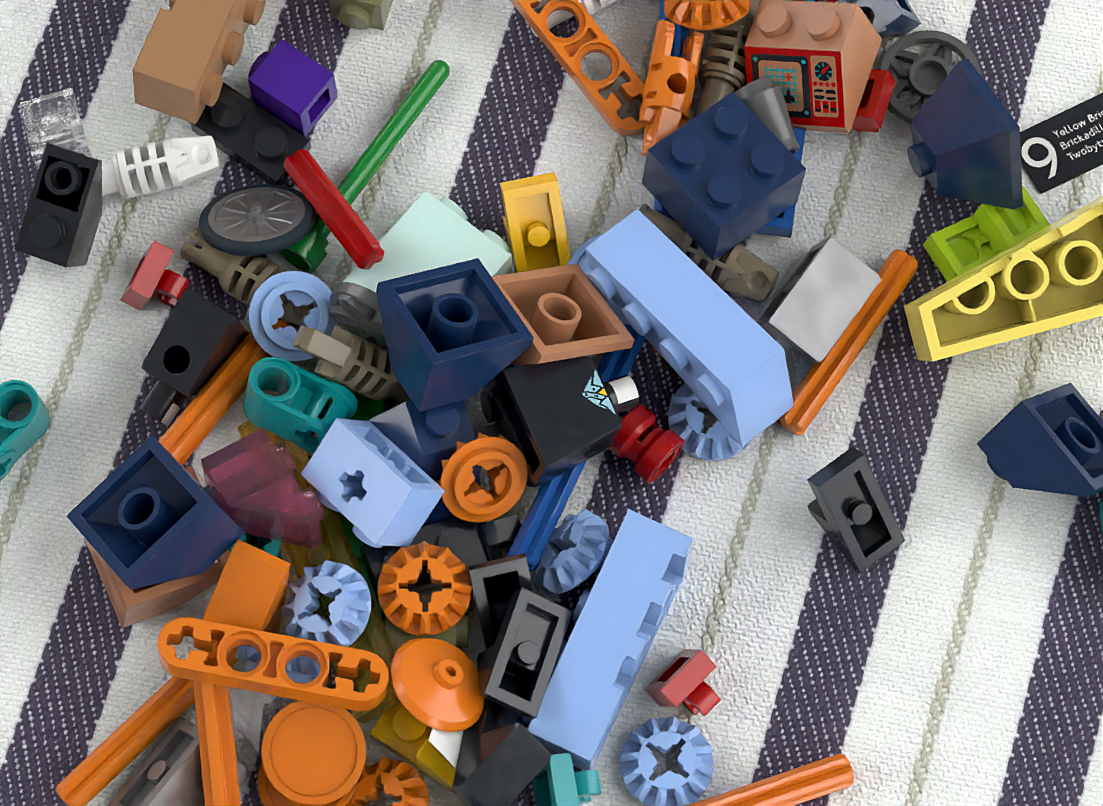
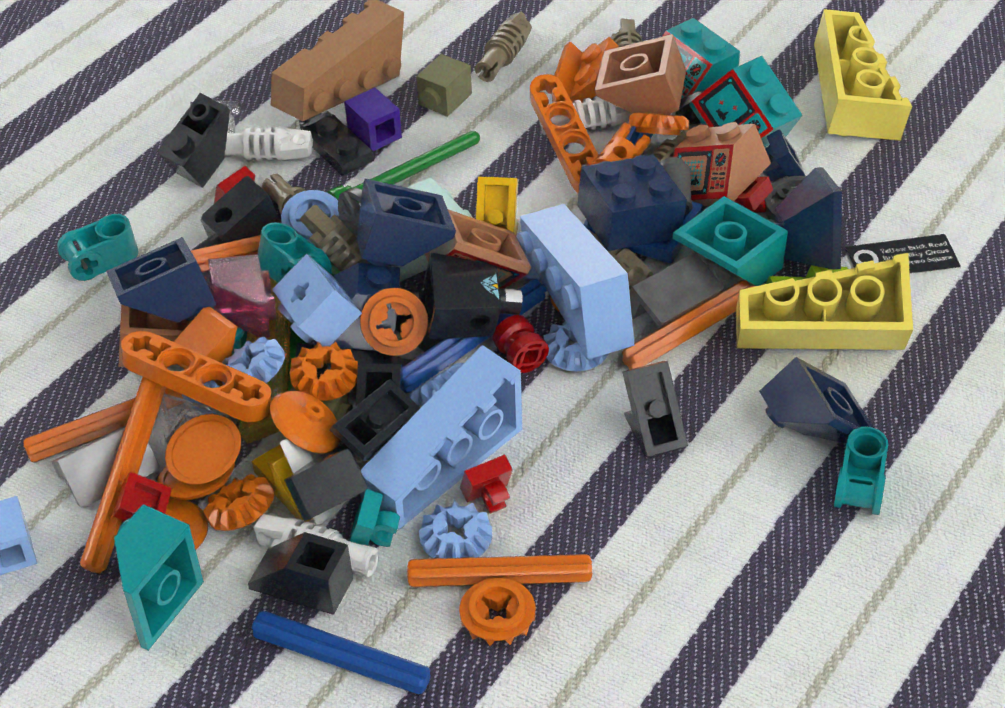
camera: 20 degrees right, 25 degrees down
(257, 219) = (317, 177): flat silver wheel -> none
(334, 209) = (363, 167): red axle -> none
(874, 202) = (736, 240): none -> teal slope

